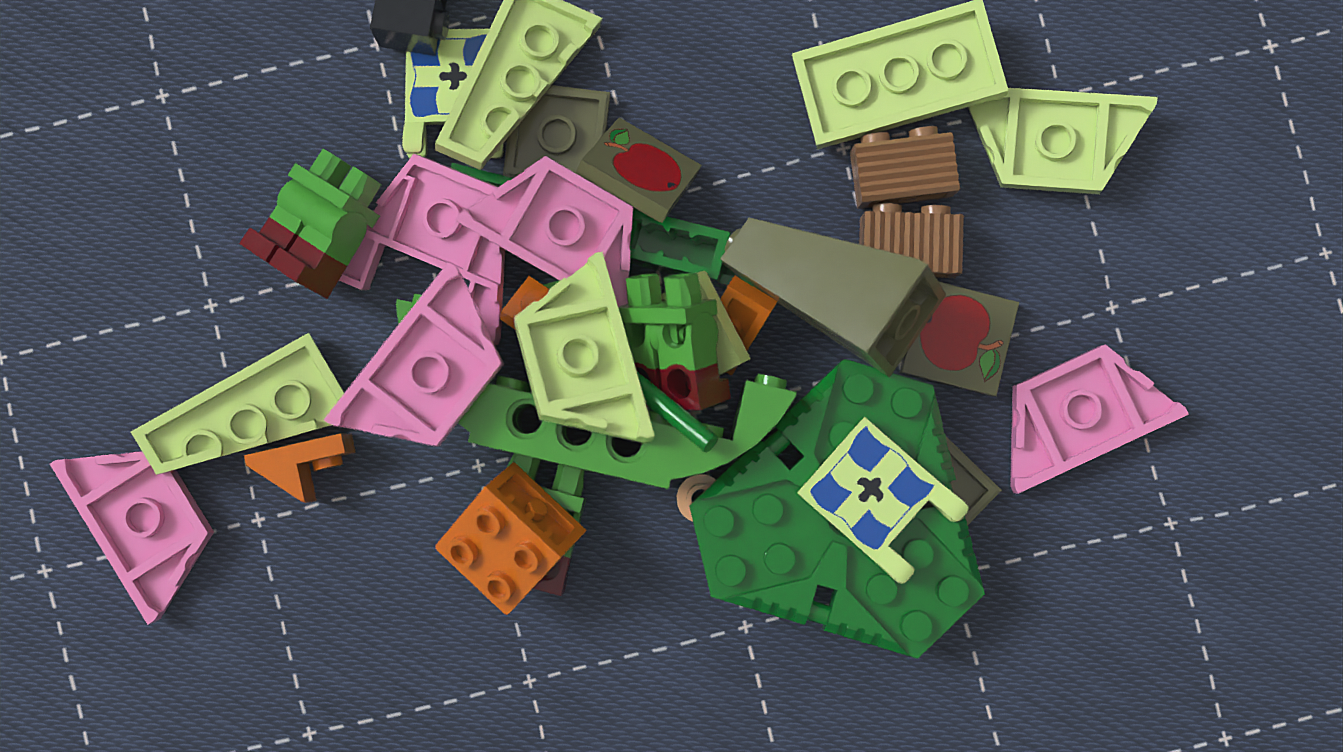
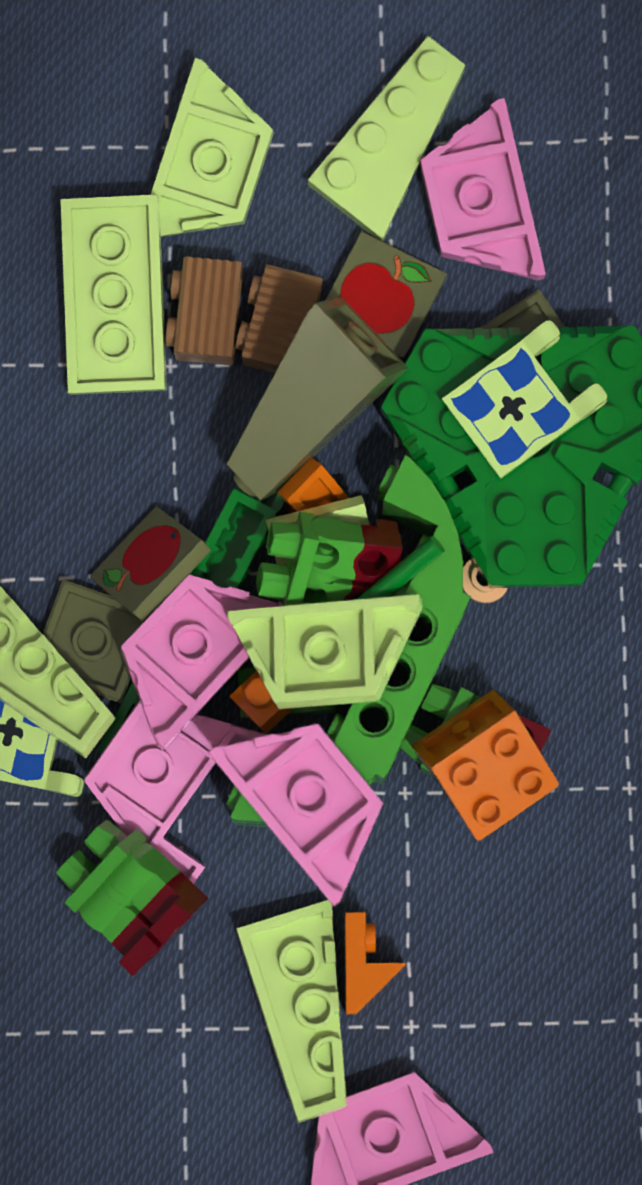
camera: 80 degrees left, 5 degrees down
(1106, 305) = (381, 151): none -> yellowish green wing

